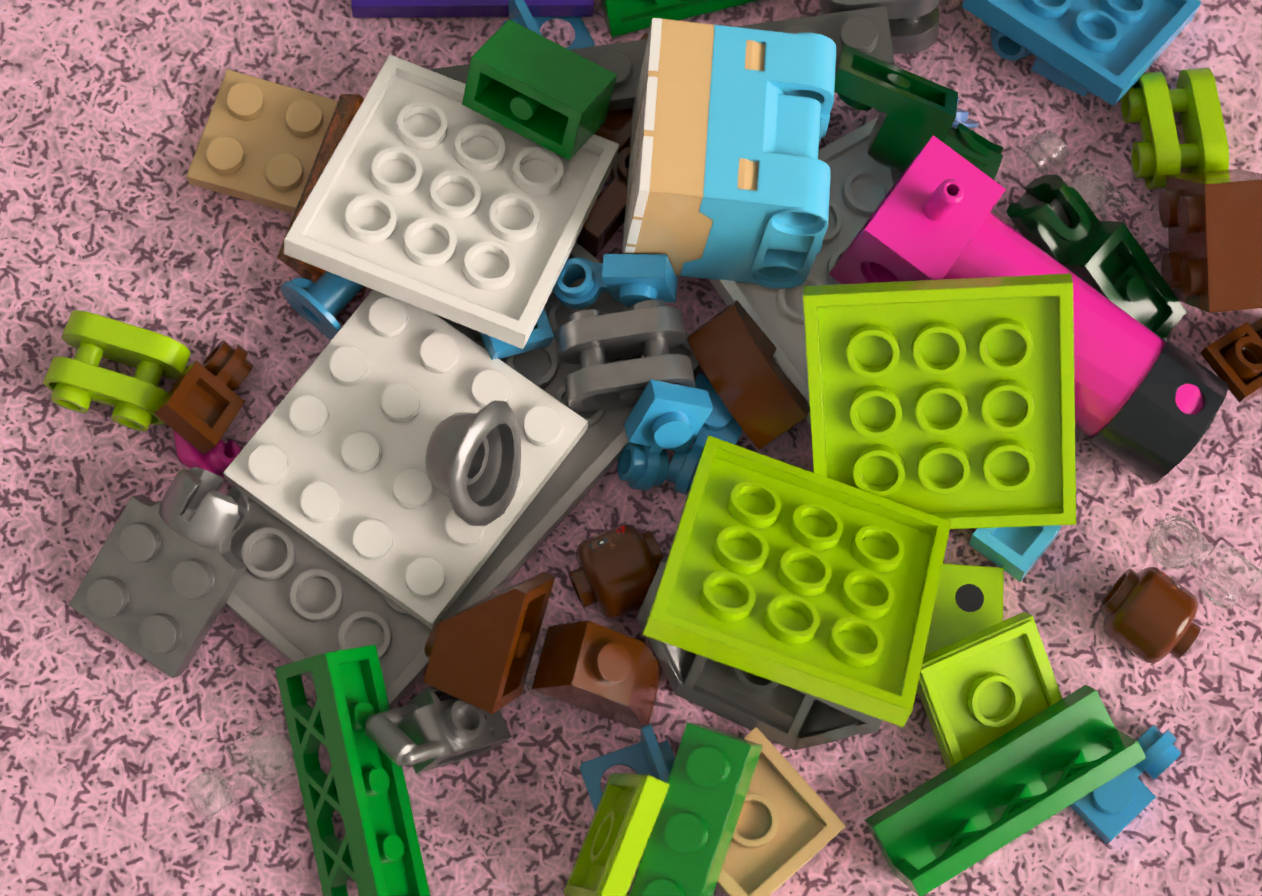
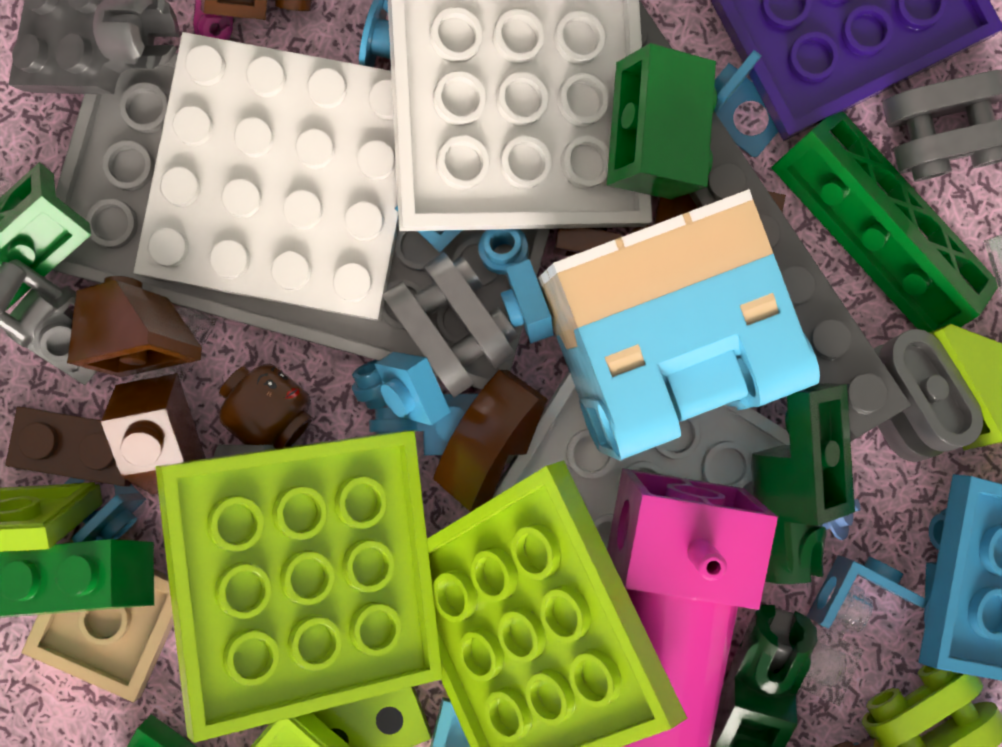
camera: 75 degrees right, 15 degrees up
(477, 461) = (268, 241): flat silver hat -> none
(564, 781) = (62, 446): none -> reddish brown plate
(1019, 117) = (843, 576): none -> dark azure bracket

